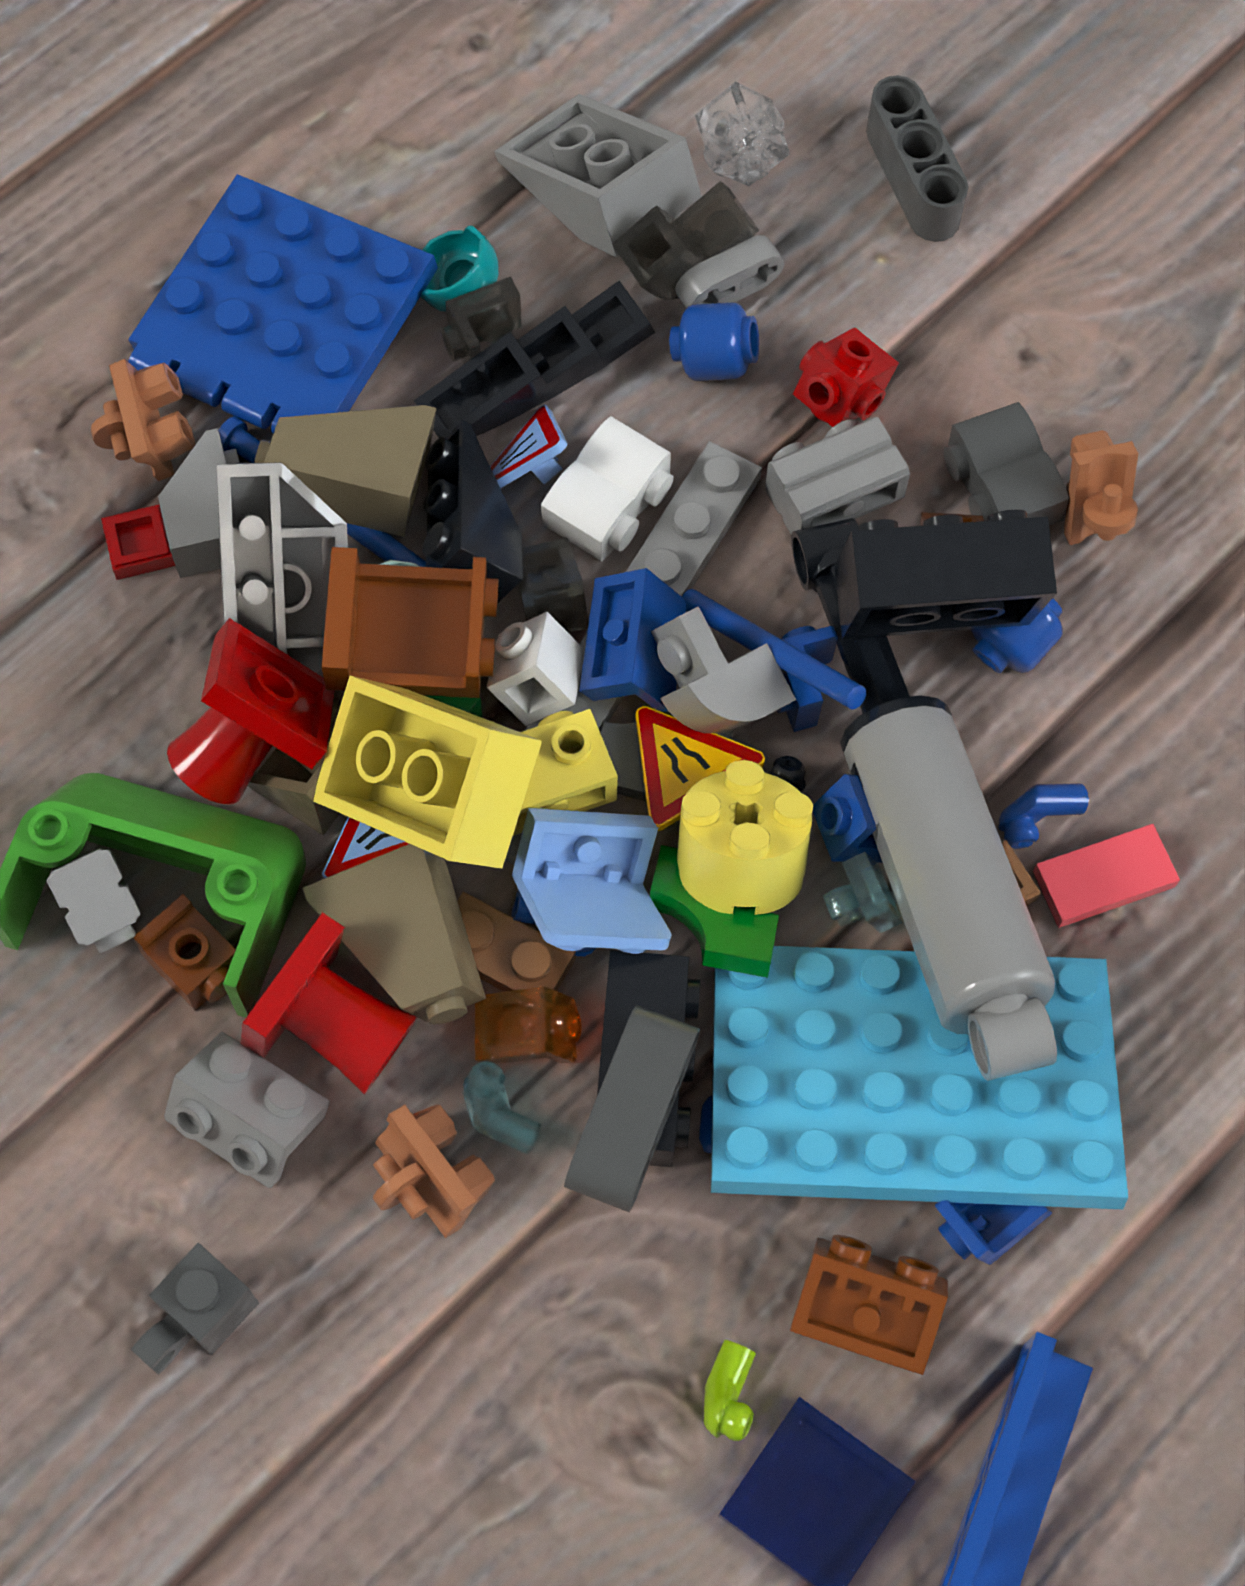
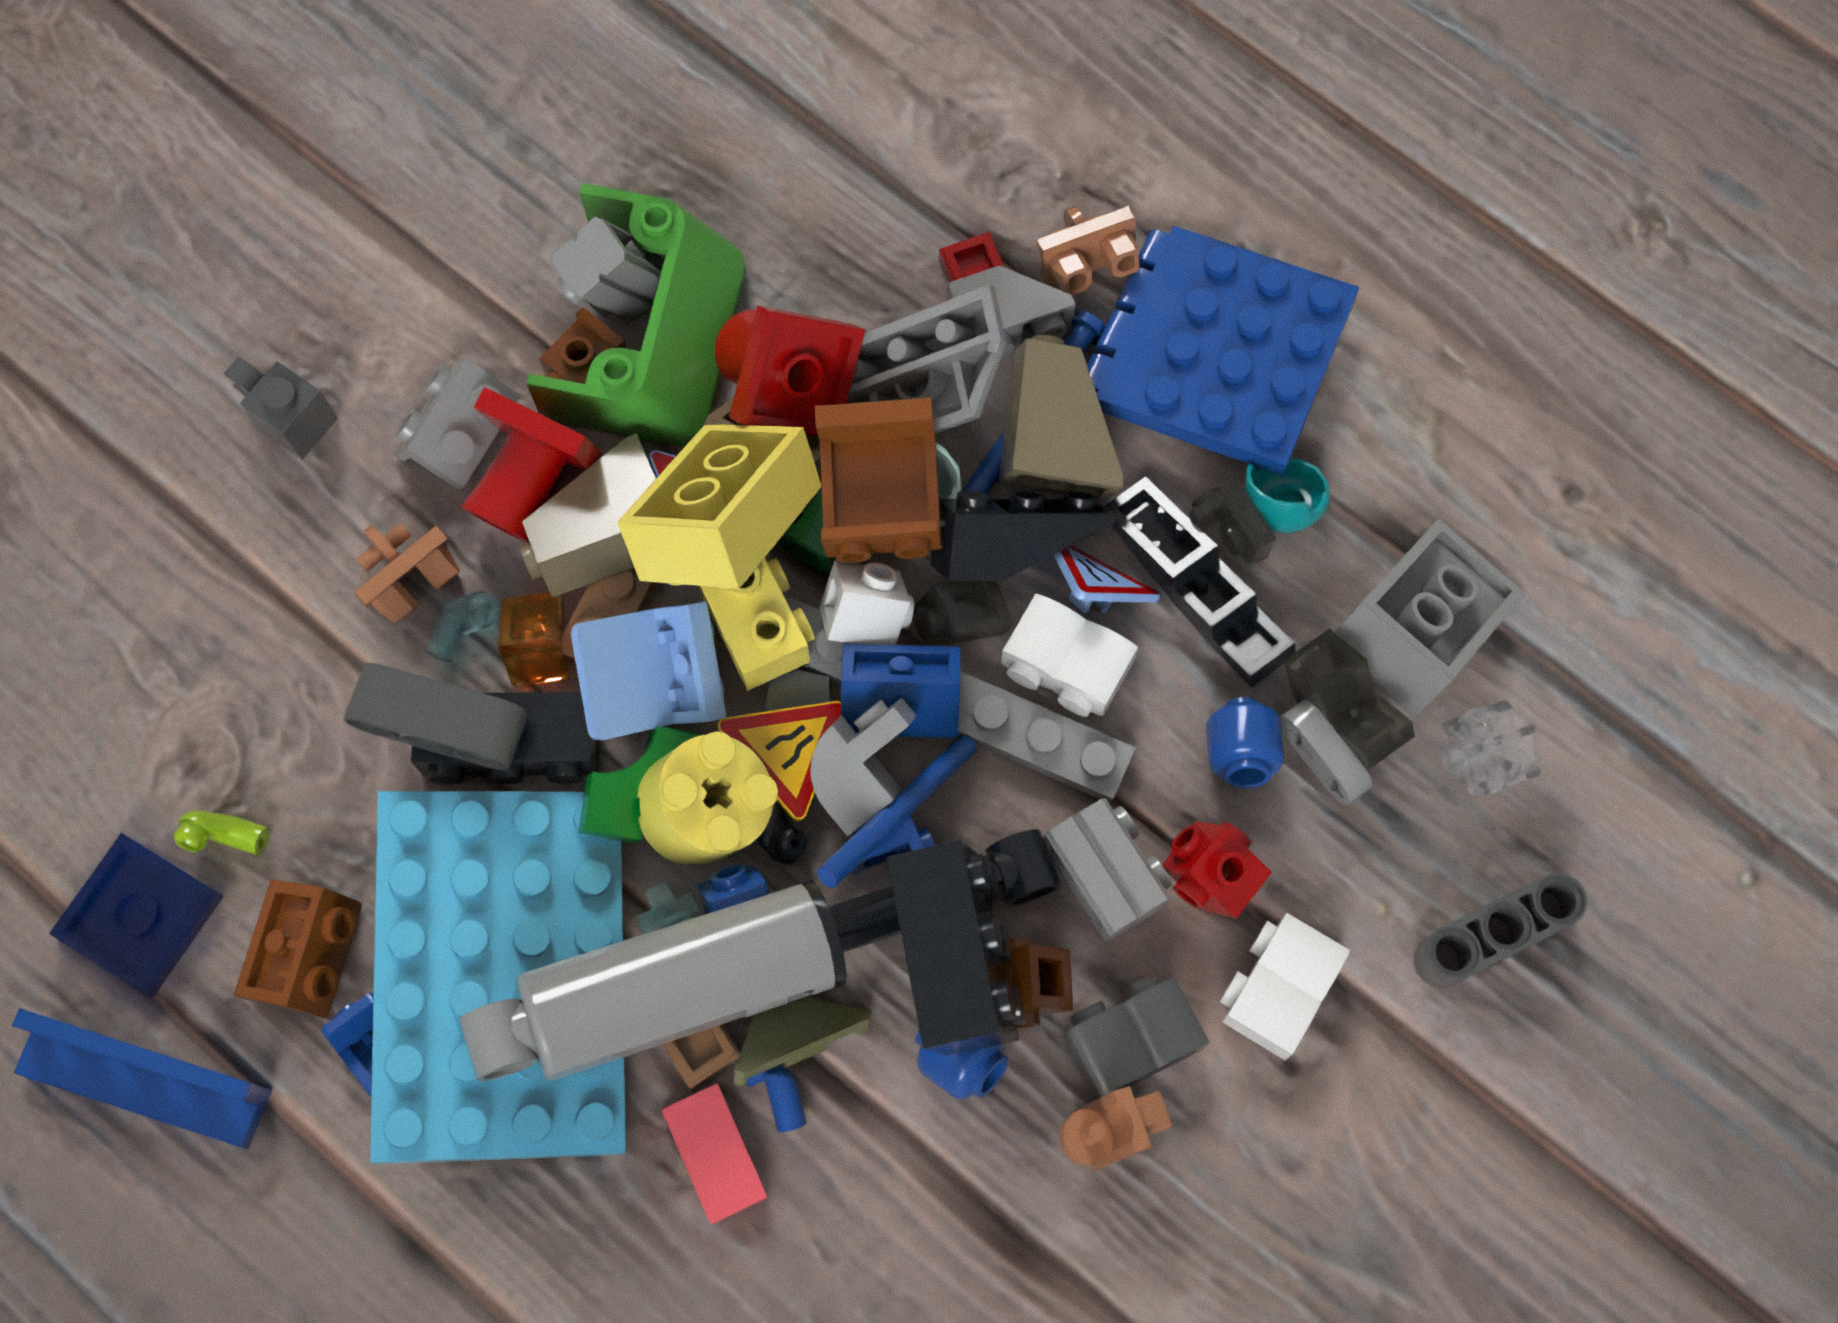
camera: 85 degrees right, 5 degrees up
(960, 339) = (1284, 985): none -> white brick
(1001, 785) = (795, 1033): none -> olive tile

